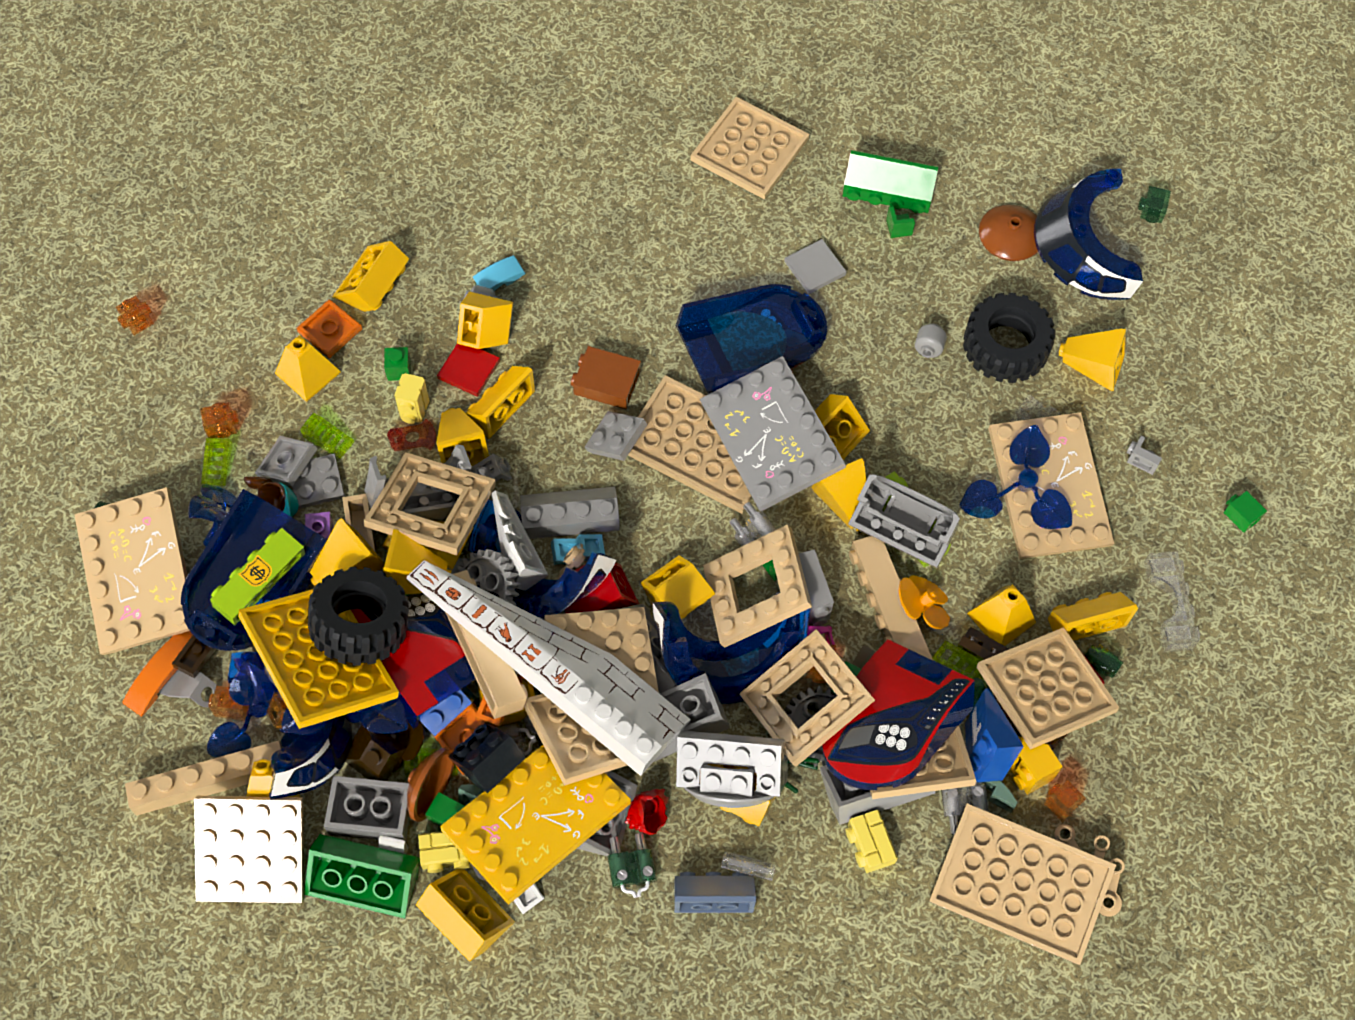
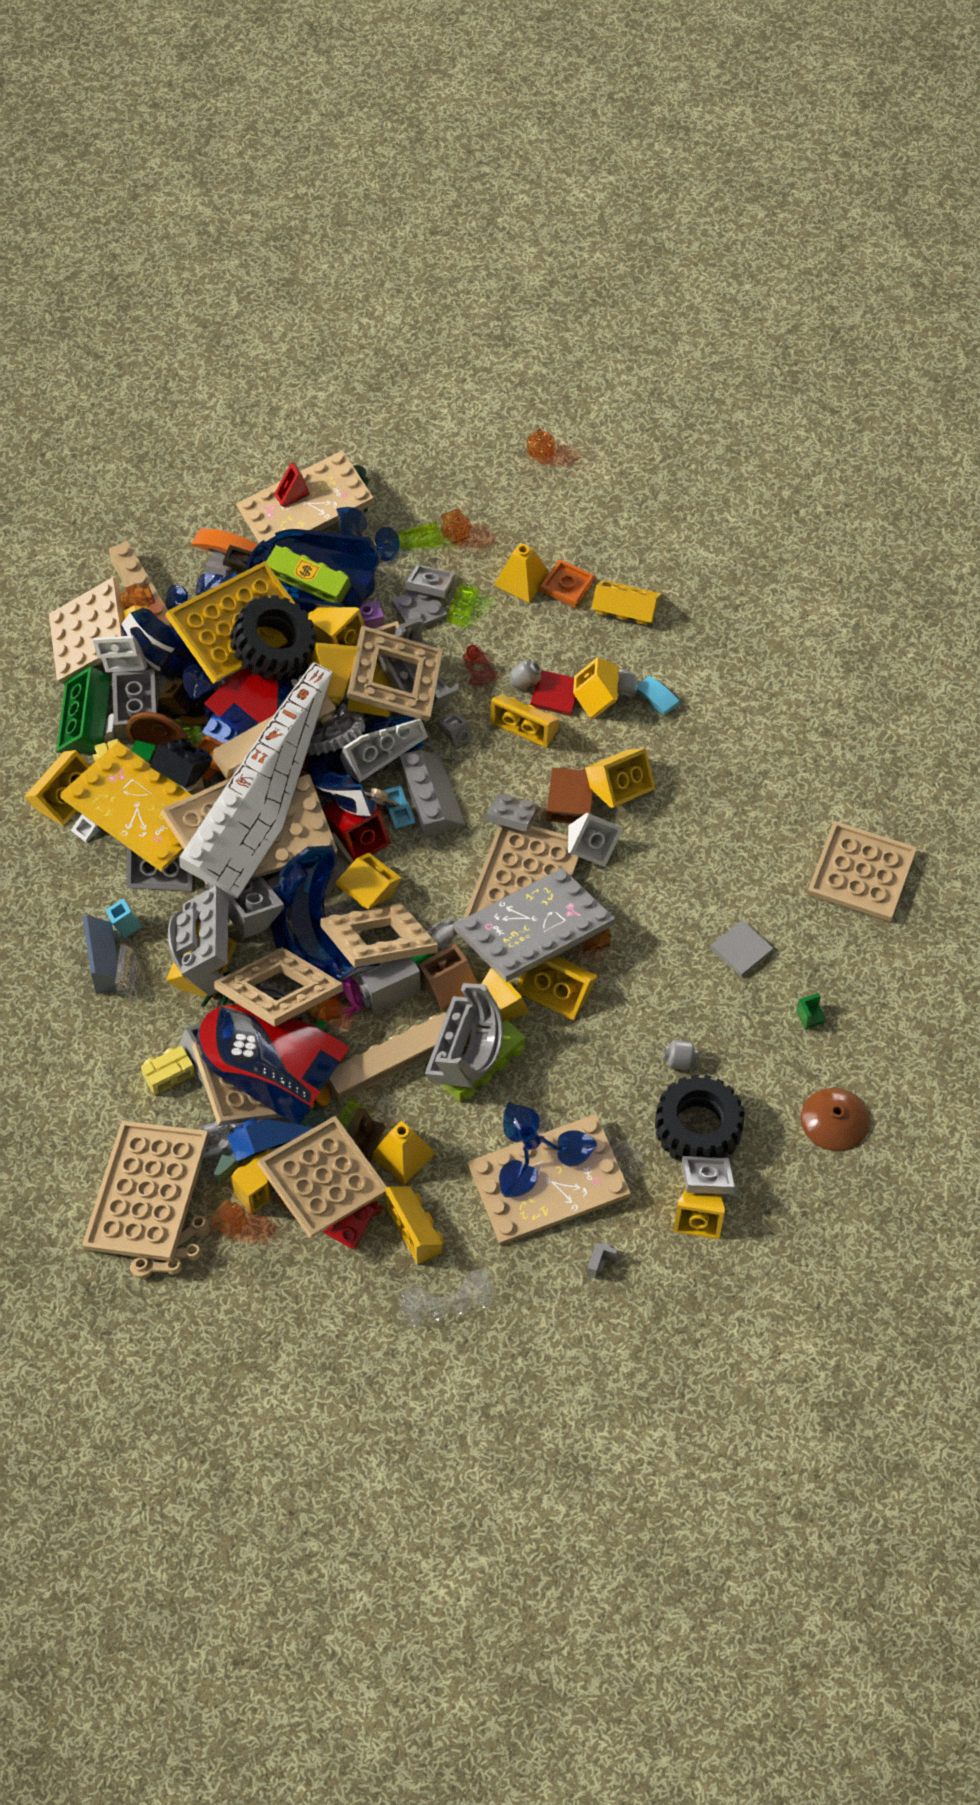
camera: 80 degrees right, 5 degrees down
(112, 577) = (291, 487): none -> red slope
(229, 777) = (137, 596): none -> clear orange brick
(274, 493) = (393, 580): reddish brown hair -> none
(312, 806) = (120, 653): none -> white slope
(396, 362) = (542, 637): green brick -> none
(412, 398) = (505, 651): light yellow brick -> none
(443, 388) = (525, 675): none -> light grey head
(460, 429) = (475, 695): yellow slope -> none
(599, 322) = (621, 777): none -> yellow slope
(631, 867) = (117, 889): clear green piece -> none
(648, 811) = (164, 897): red hair -> none
(669, 862) = (124, 918): none -> medium azure brick
(671, 364) = (593, 838): none -> white slope
(748, 330) = (650, 903): clear blue windscreen -> none
(809, 530) = (445, 975): none -> medium nougat slope
(889, 182) = (850, 993): slope -> none
(919, 597) = (404, 1075): light orange piece -> none
(1072, 249) = (829, 1155): clear blue windscreen -> none
(1077, 338) = (707, 1175): none -> light grey plate
(1103, 660) = (373, 1242): clear green brick -> none
(1154, 204) = (905, 1247): clear green brick -> none
(1244, 511) = (560, 1358): green brick -> none

